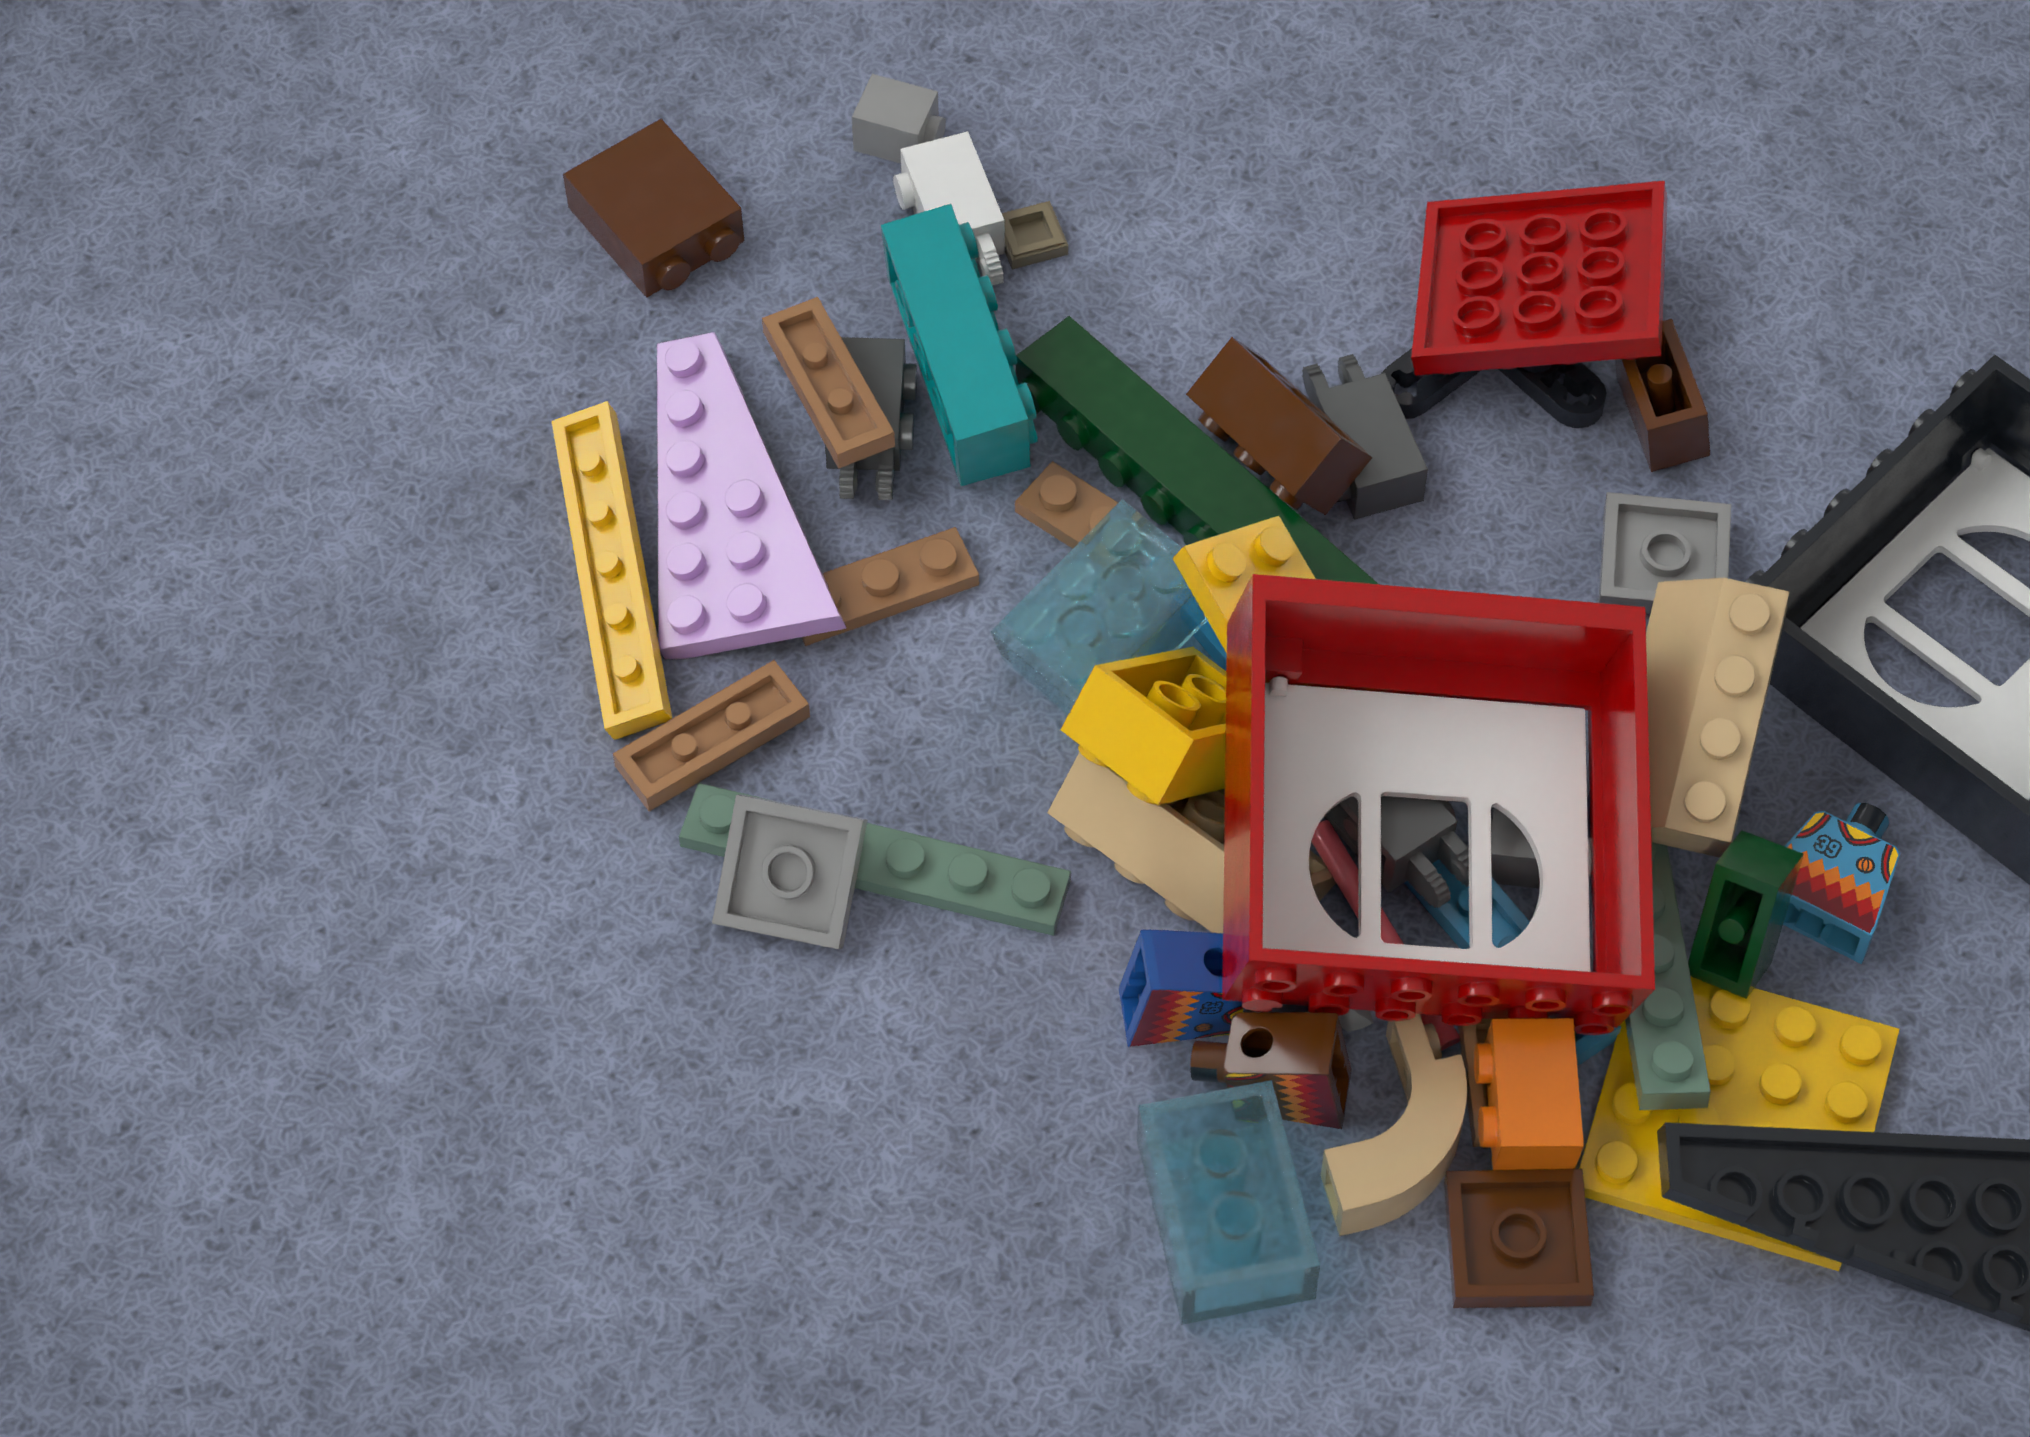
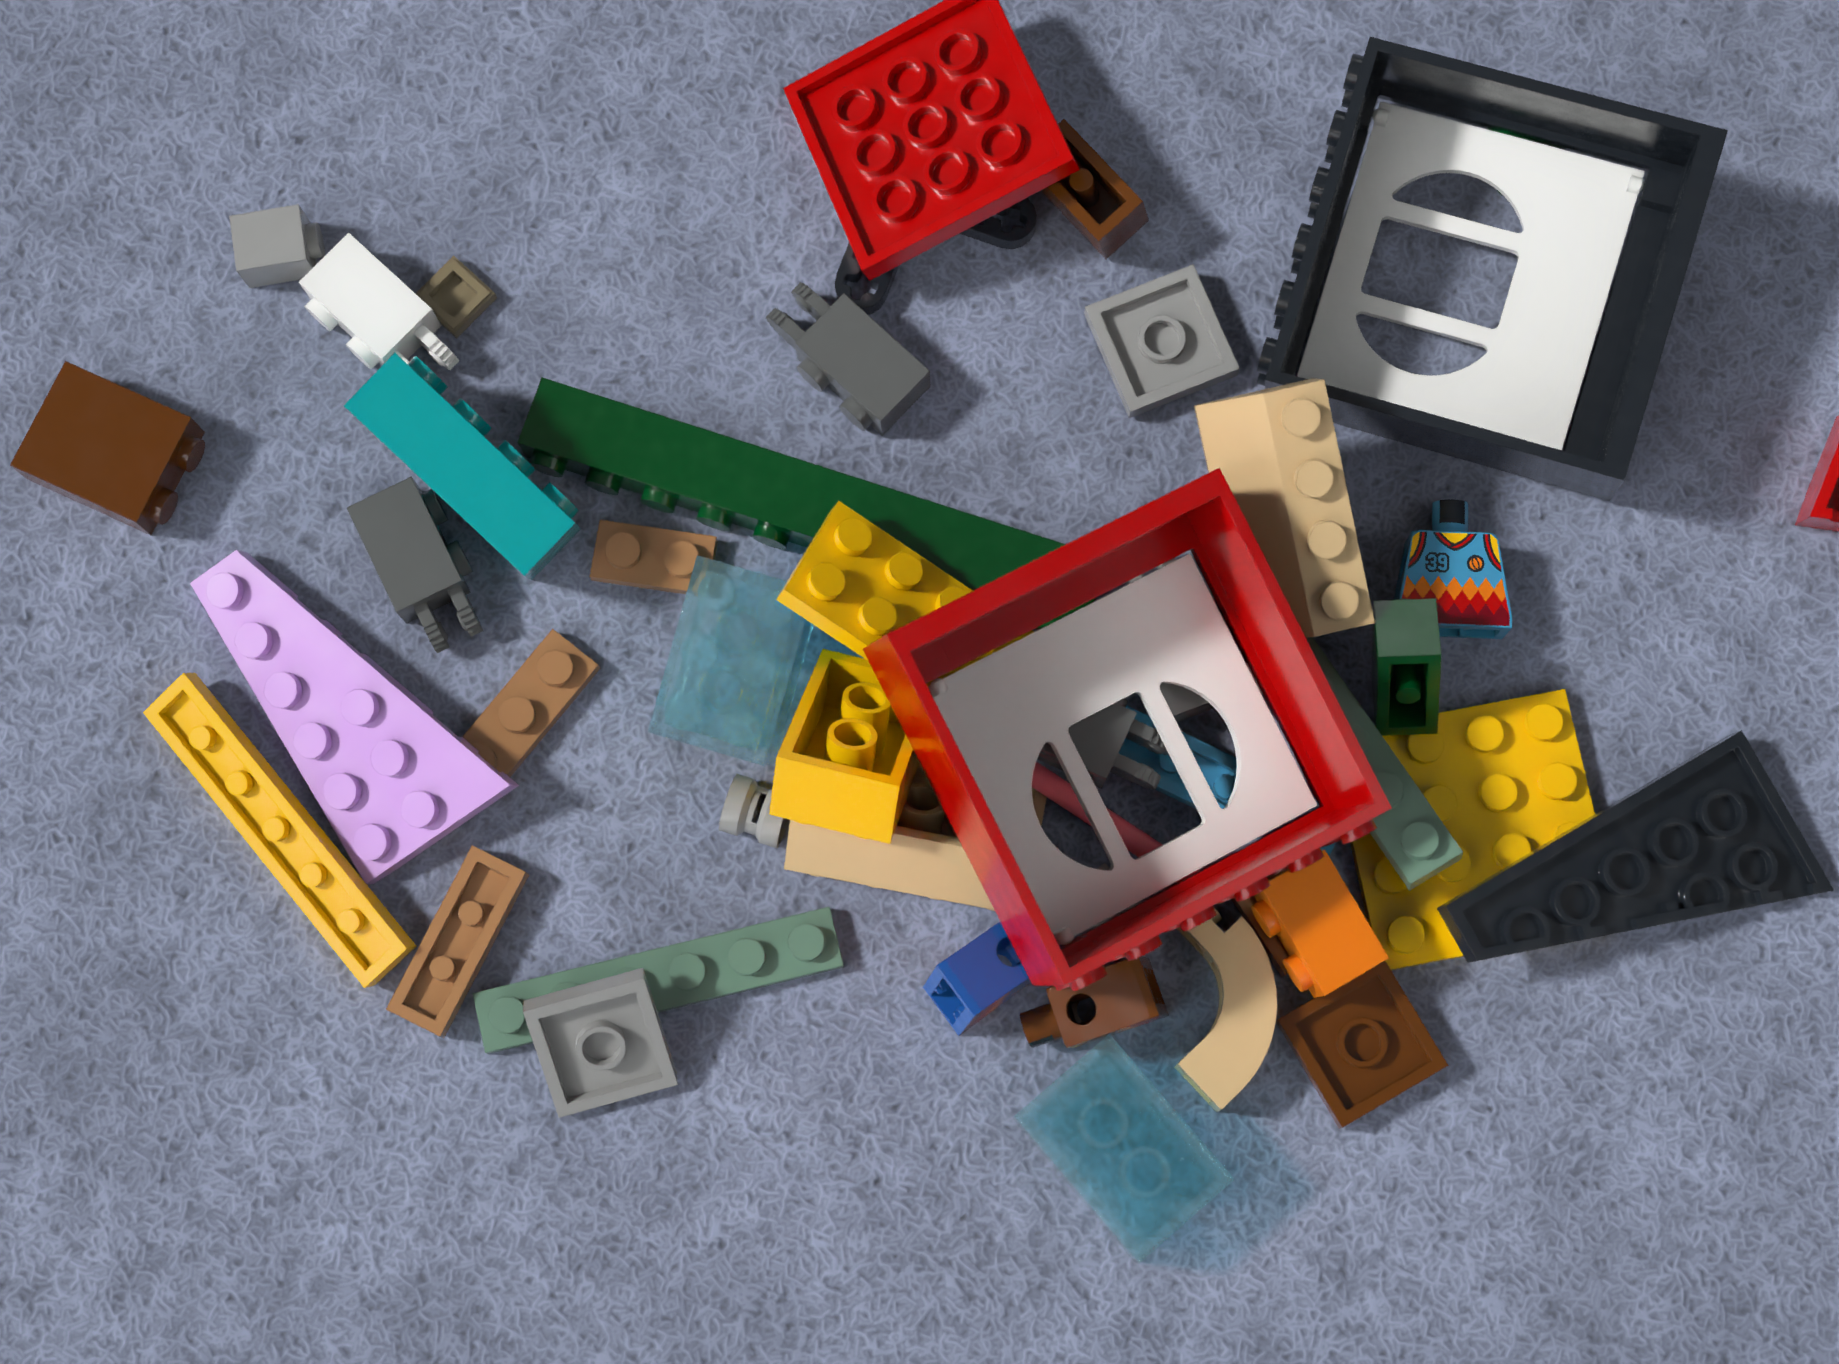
camera: 25 degrees left, 20 degrees up
(828, 382) = (372, 563): medium nougat plate -> none
(1043, 752) = (743, 808): none -> light grey wheel
(1277, 428) = (781, 396): reddish brown brick -> none

